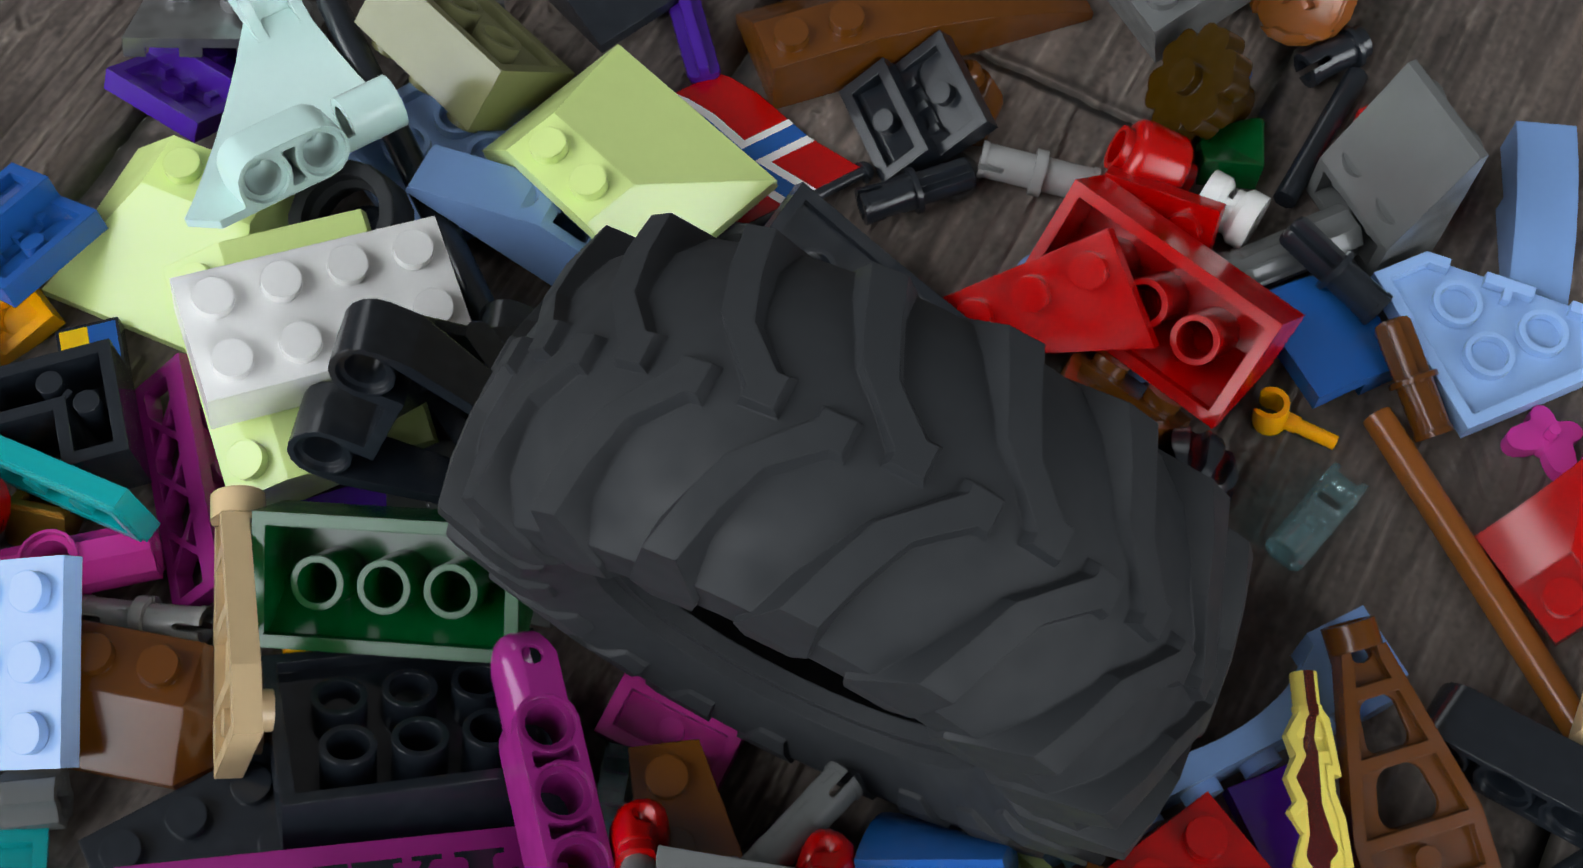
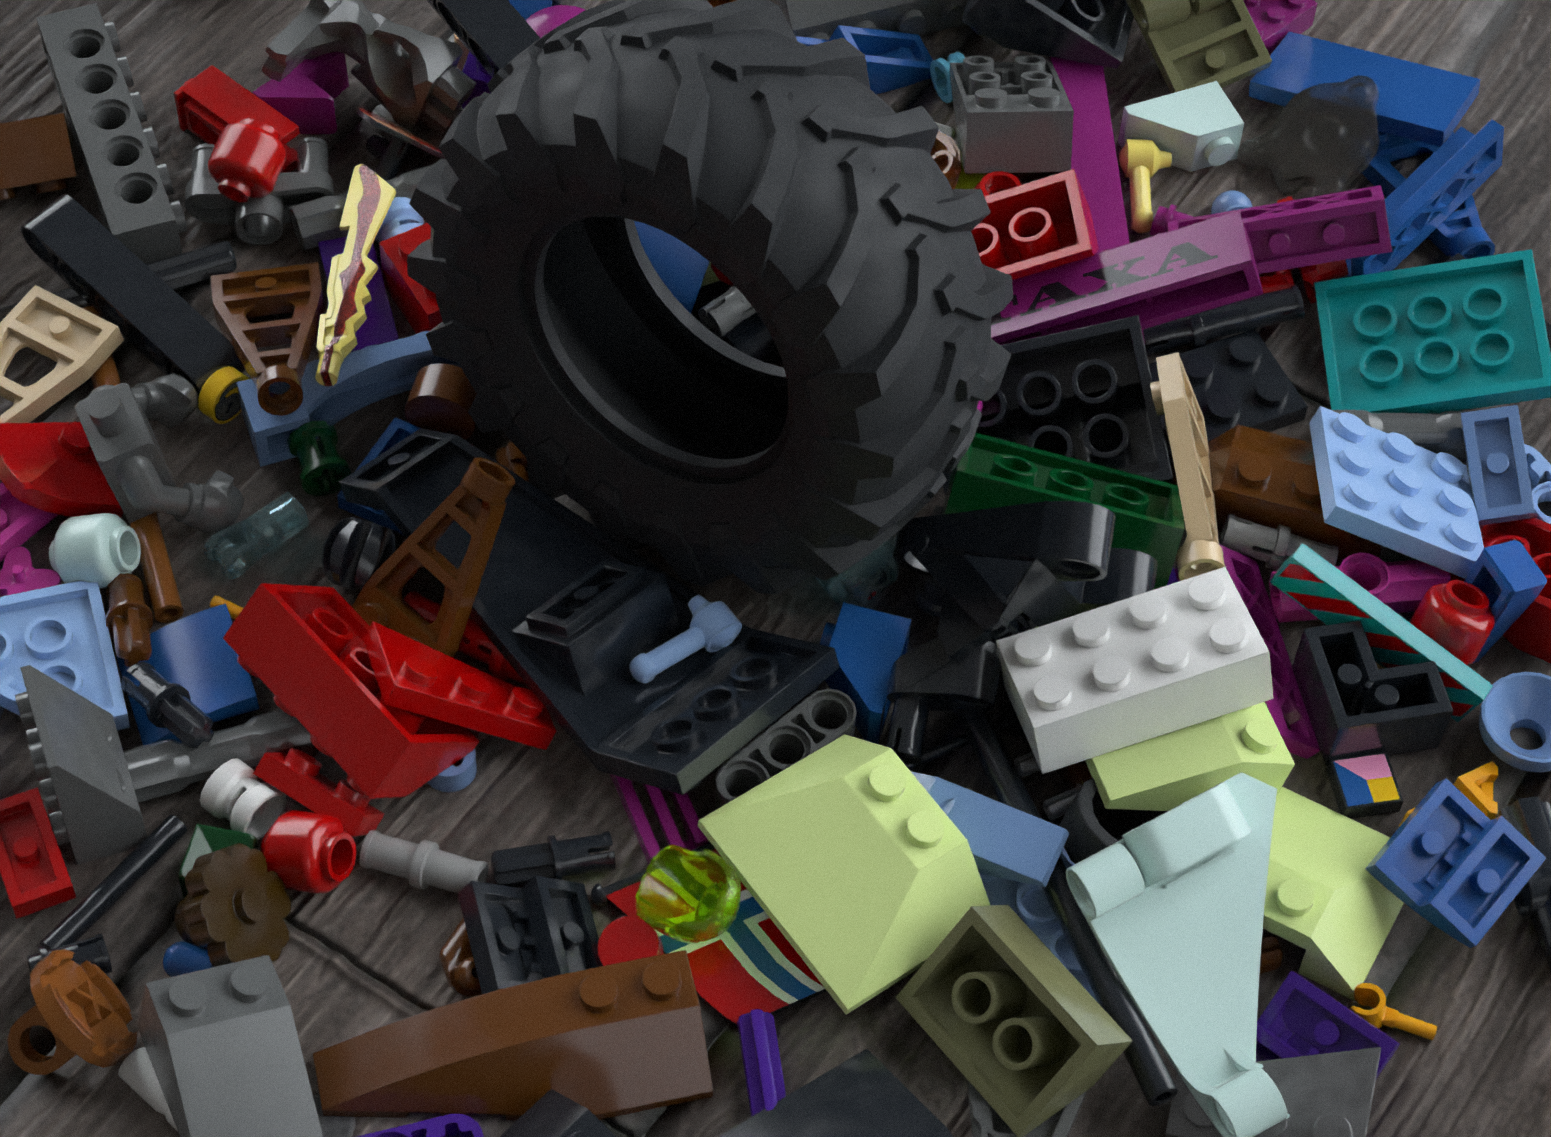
camera: 175 degrees left, 10 degrees down
(121, 124) = (1373, 996): none -> light orange hand
(778, 134) = (689, 894): none -> clear neon green hair
(827, 117) = (628, 940): none -> red tile
(1278, 615) = (318, 457): none -> dark green bush
(1426, 681) = (220, 395): none -> yellow tile
(1482, 459) = (94, 549): none -> light aqua head
(1496, 544) = (133, 461): none -> dark grey torso

